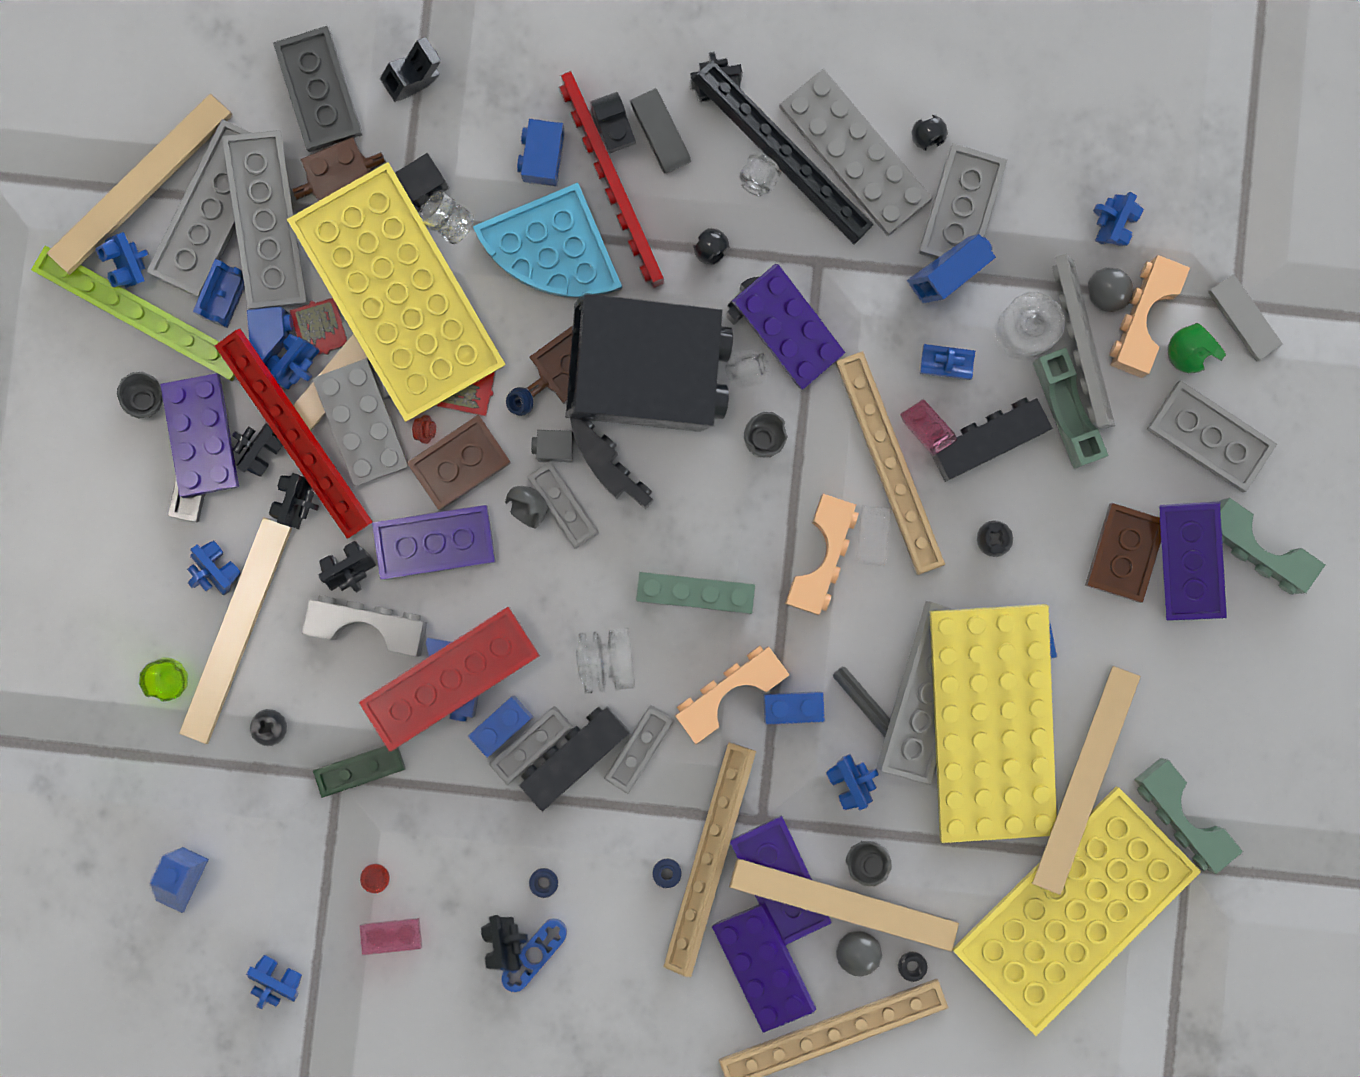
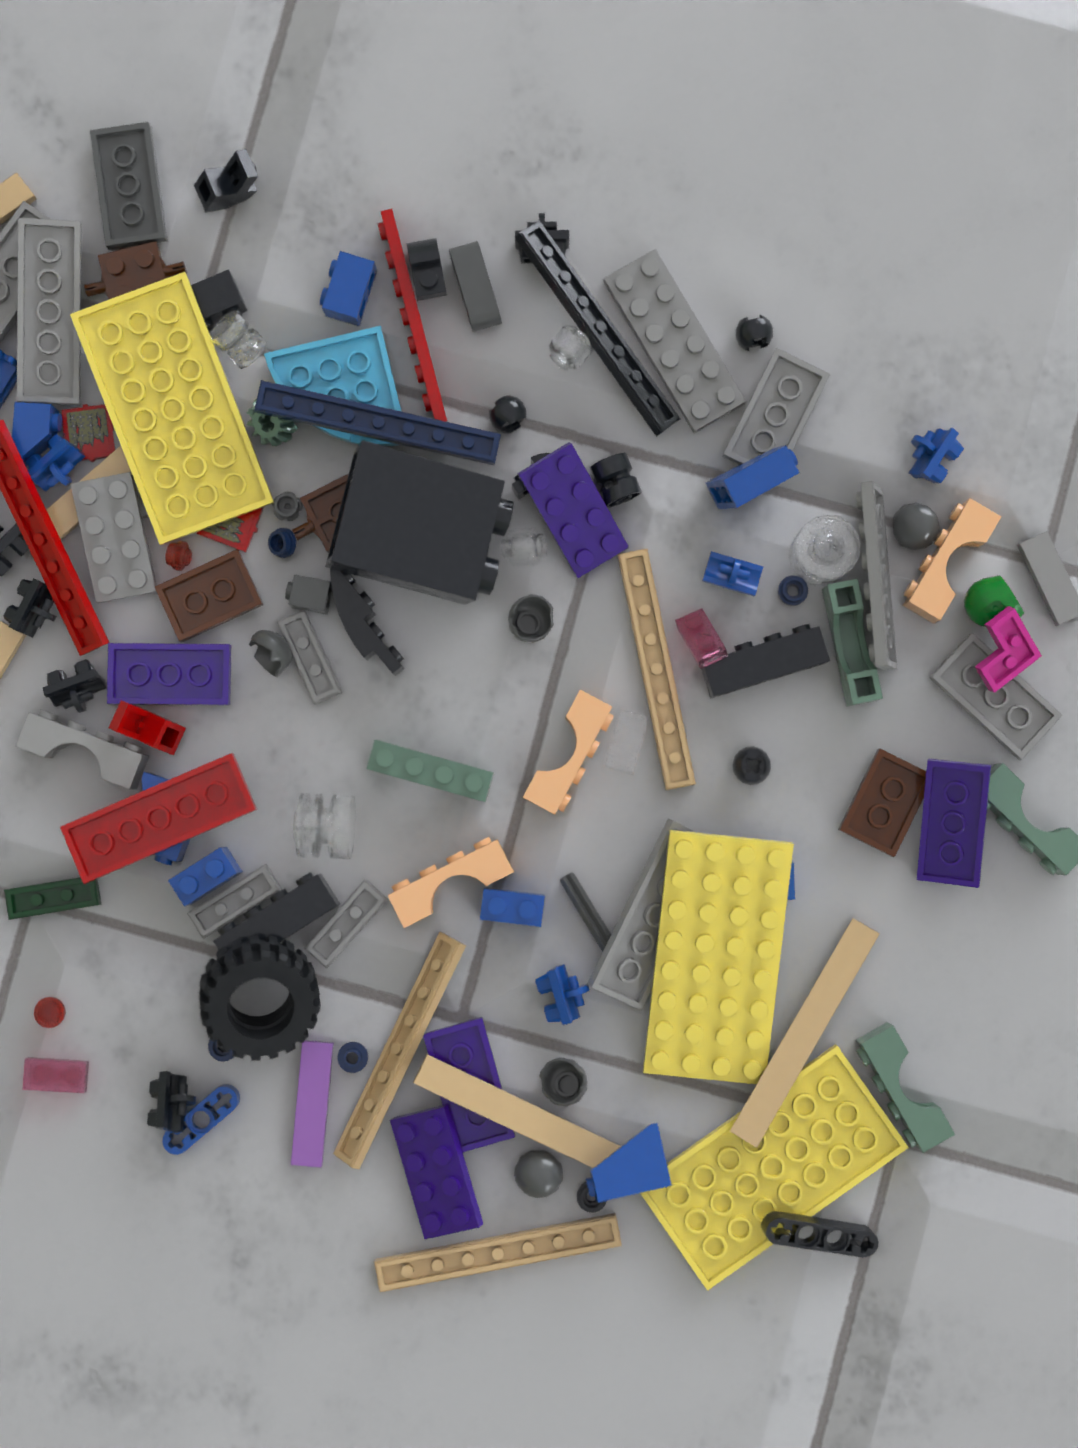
camera: 10 degrees right, 0 degrees up
(423, 596) = (147, 727): none -> red brick
(499, 284) = (270, 428): none -> sand green gear
(512, 361) = (279, 506): none -> dark grey plate
(592, 274) = (377, 422): none -> dark blue tile
(592, 859) = (266, 1033): none -> black tyre
(635, 923) = (312, 1103): none -> medium lavender tile
(819, 282) = (616, 469): none -> black wheel
(946, 933) = (631, 1168): none -> blue slope
(1013, 364) = (797, 582): none -> dark blue plate
(1131, 970) = (818, 1238): none -> black beam
(1222, 394) = (1014, 651): none -> dark pink plate

